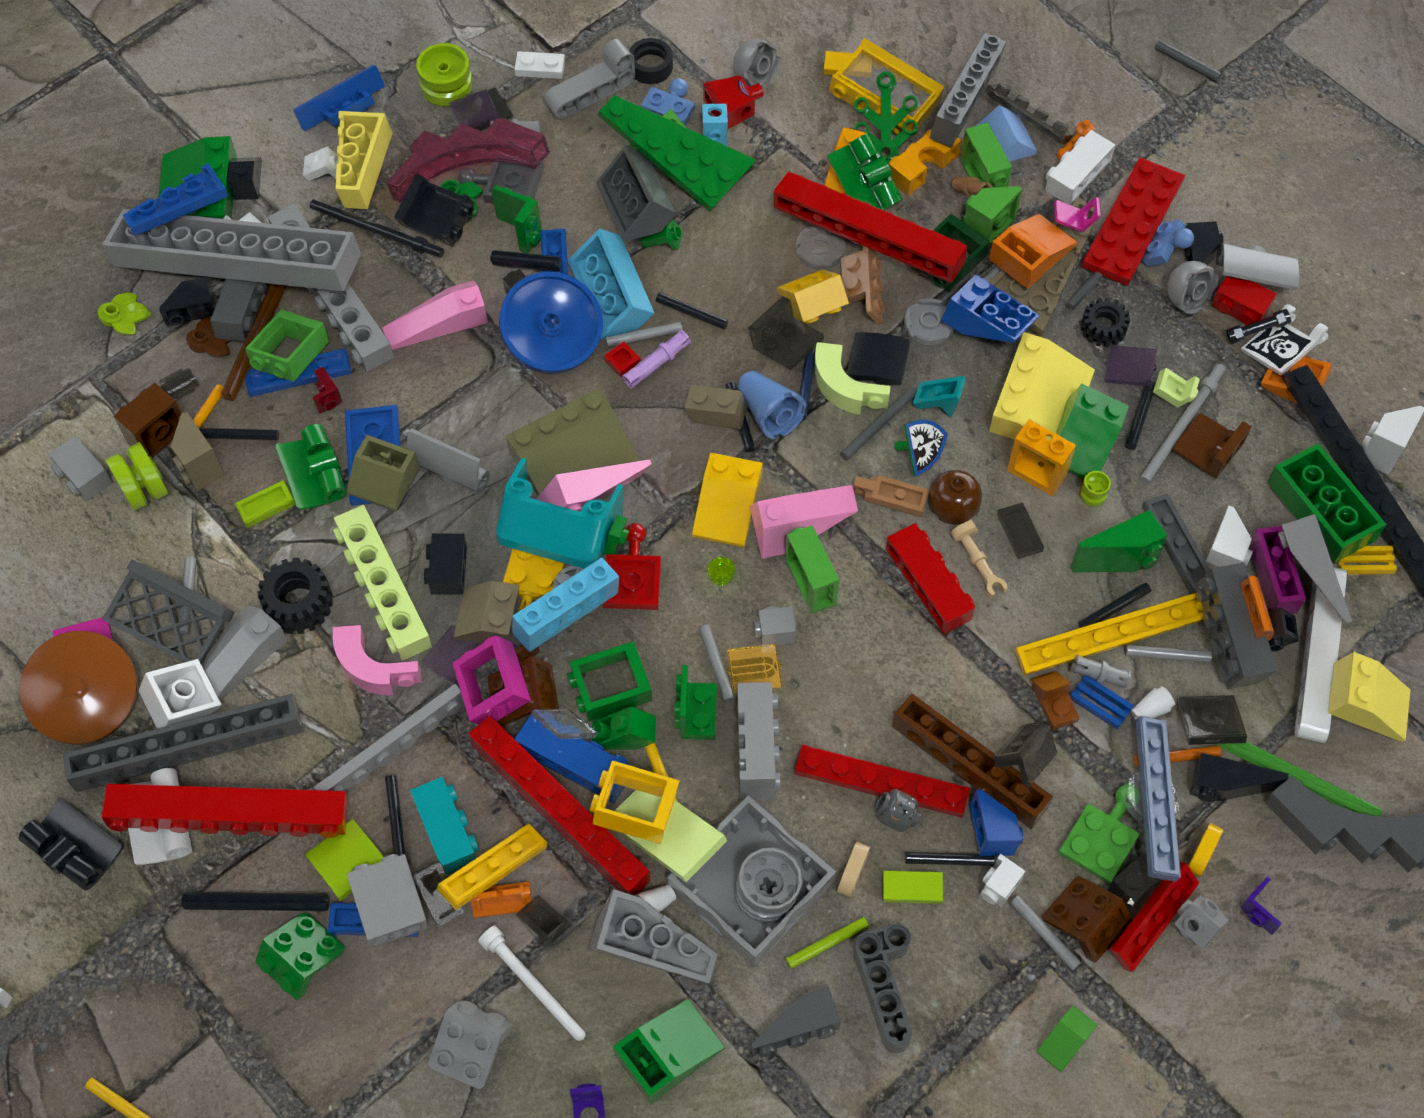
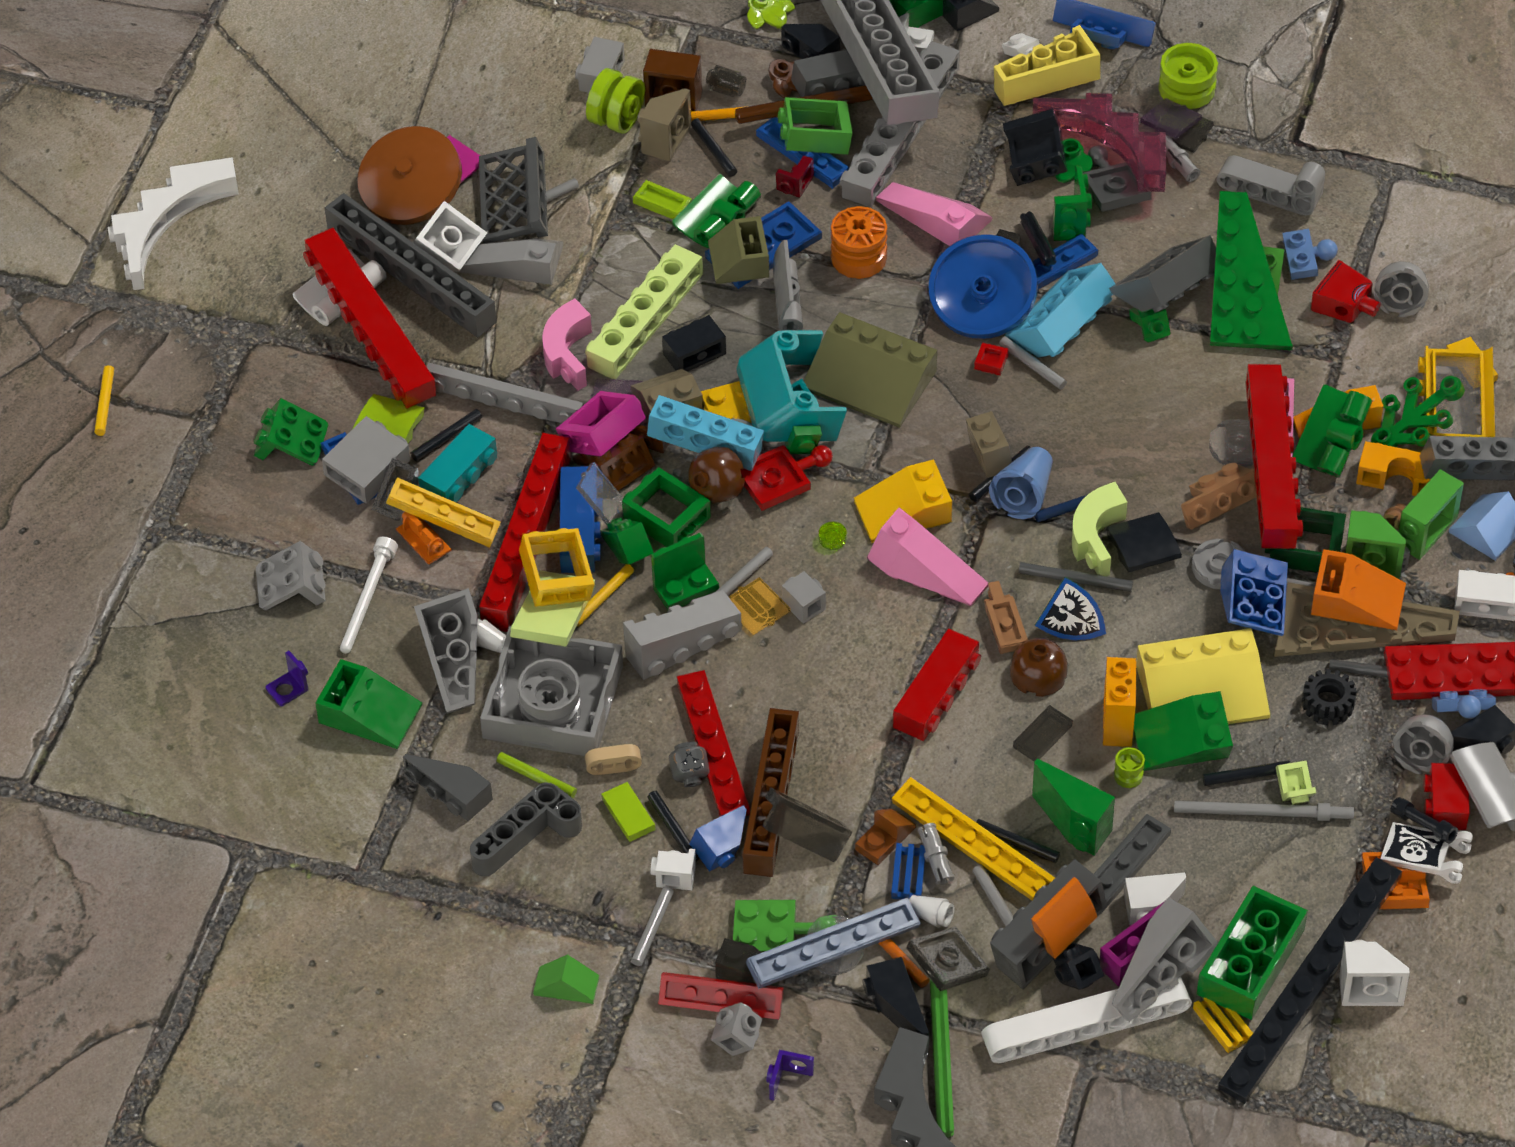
camera: 60 degrees right, 10 degrees down
(71, 845) = (280, 250): black panel -> none
(255, 901) = (314, 386): black axle -> none
(290, 577) = (593, 247): black tyre -> none
(417, 243) = (996, 158): black bar -> none
(437, 382) = (859, 242): none -> orange wheel
(540, 65) = (1267, 139): white plate -> none
(543, 922) = (418, 574): clear smoke slope -> none
(578, 487) = (835, 392): bright pink wedge -> none
(610, 620) = (716, 474): none -> reddish brown cylinder
(656, 47) = (1340, 228): black tyre -> none
(665, 352) = (1022, 385): lavender pin -> none
(692, 310) = (1086, 384): black bar -> none
(715, 127) = (1295, 293): medium azure bracket -> none
(782, 335) = (1108, 455): clear smoke bracket -> none
(811, 569) = (873, 589): bright green window -> none
(815, 295) = (1171, 460): yellow slope -> none
(940, 393) = (1139, 606): teal slope -> none
(964, 534) = (1003, 690): tan piece -> none
(1075, 217) = (1423, 607): dark pink bracket -> none
(1089, 916) = (684, 947): reddish brown bracket -> none
(1131, 365) = (1296, 740): clear purple piece -> none
(1205, 849) = (812, 1007): yellow beam -> none
(1211, 444) = (1253, 839): reddish brown bracket -> none
(1369, 696) = (1060, 1071): light yellow slope -> none

